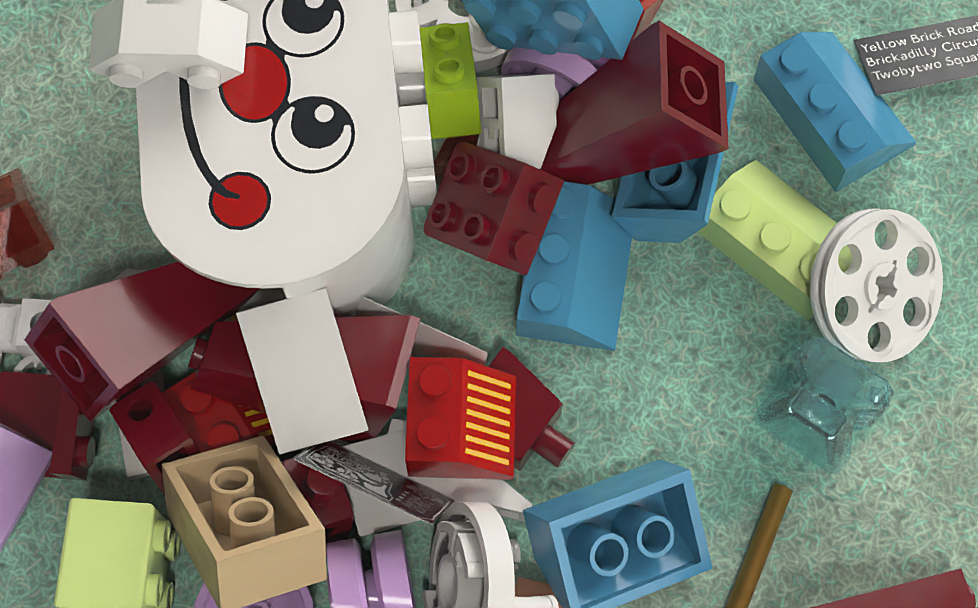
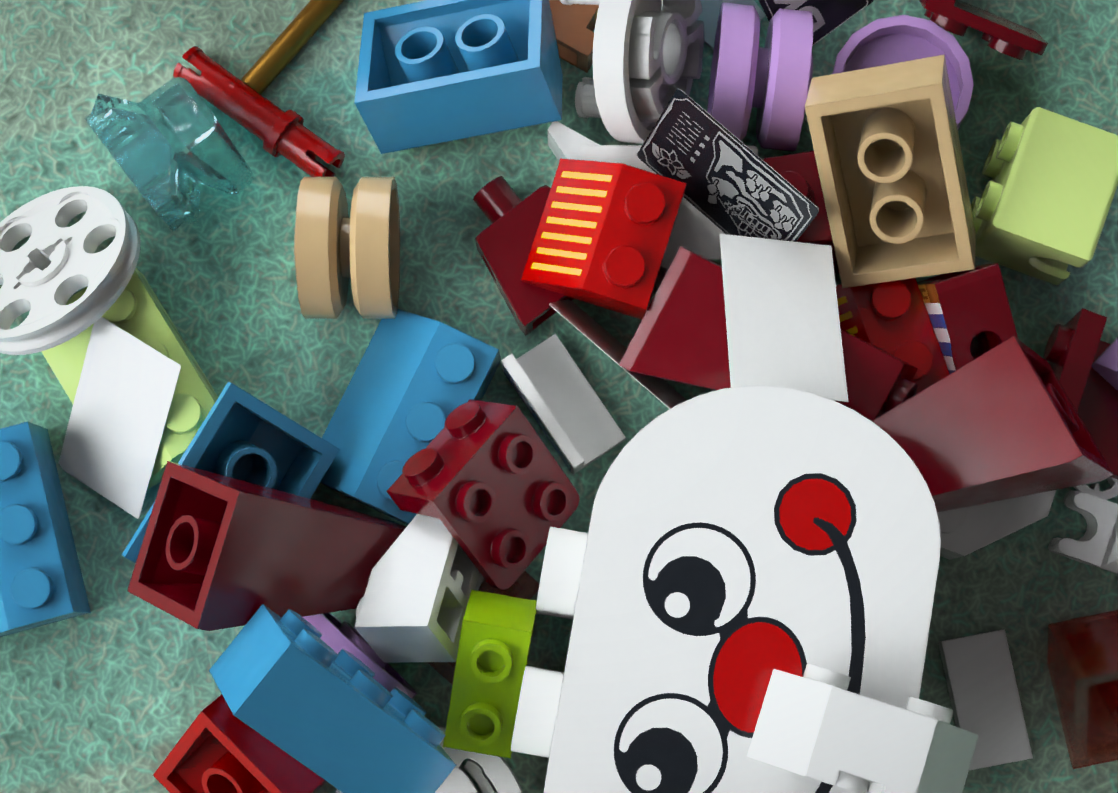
camera: 165 degrees left, 10 degrees up
(92, 194) = (986, 697): none -> white tile
(459, 306) = (563, 403): none -> white panel
(657, 365) = (341, 247): none -> tan wheel
(766, 463) = (279, 130): none -> red pin
(782, 197) = (119, 416): none -> white sticker

